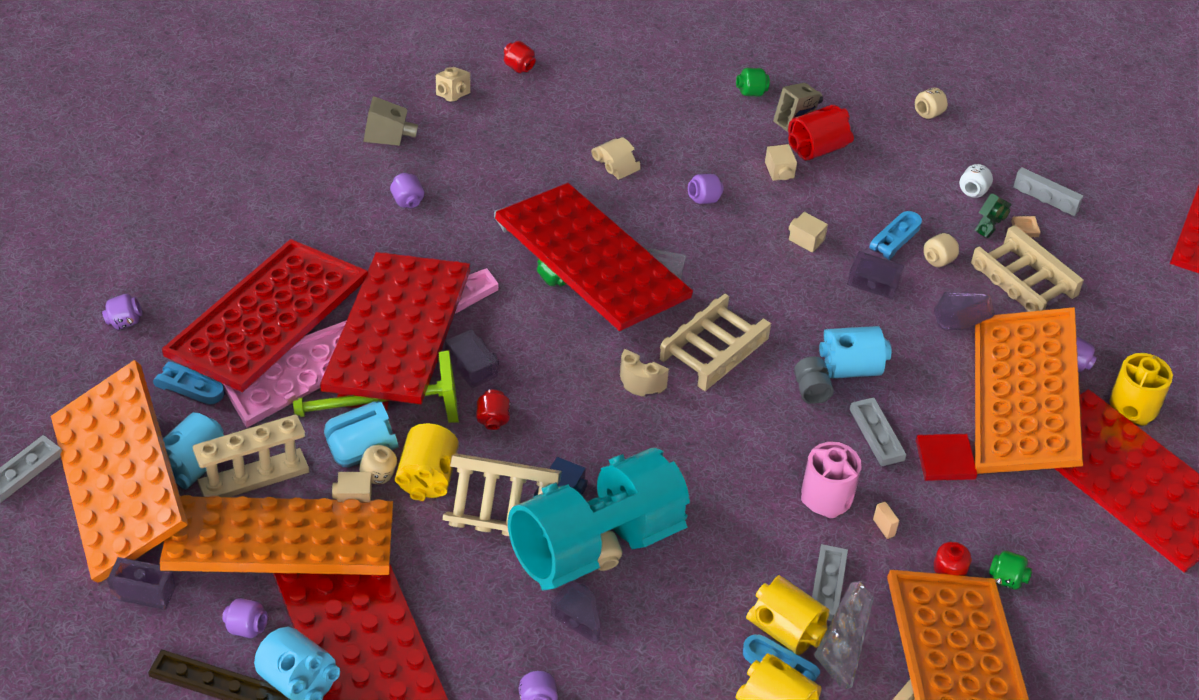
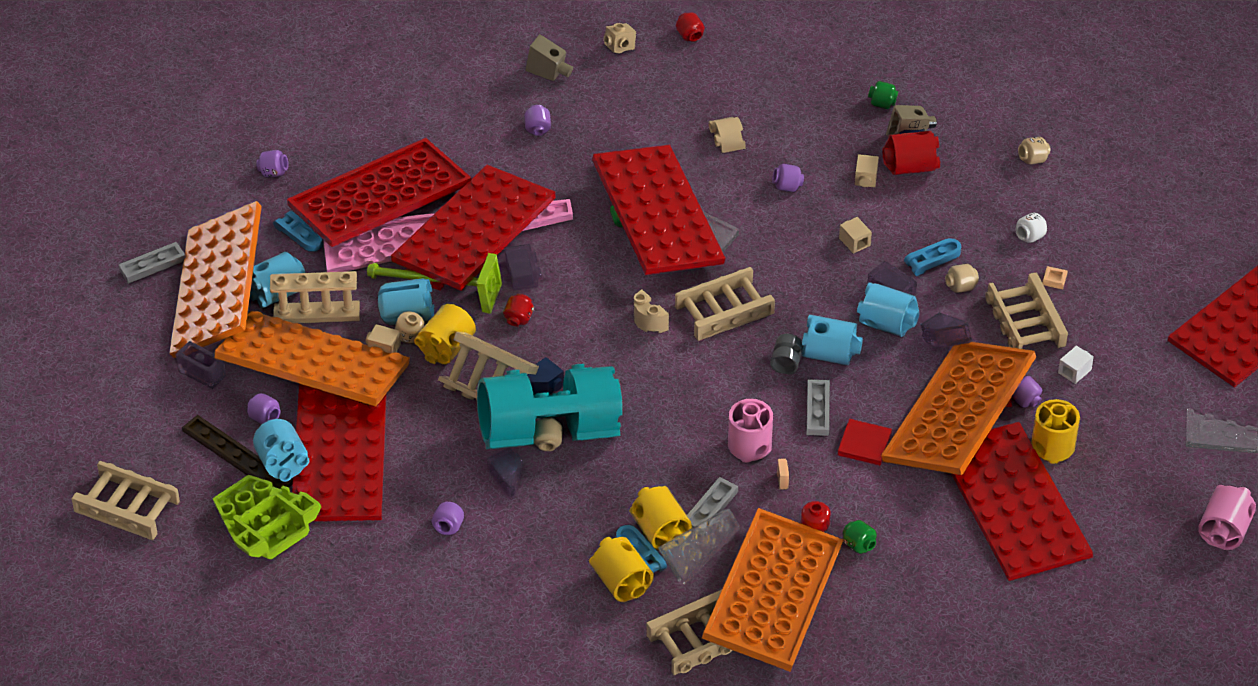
camera: 25 degrees right, 0 degrees up
(894, 303) = (888, 309): none -> medium azure cylinder
(993, 211) = (1025, 256): dark green hinge -> none
(1048, 191) = (1091, 252): light grey plate -> none
(1106, 312) = (1075, 364): none -> white brick

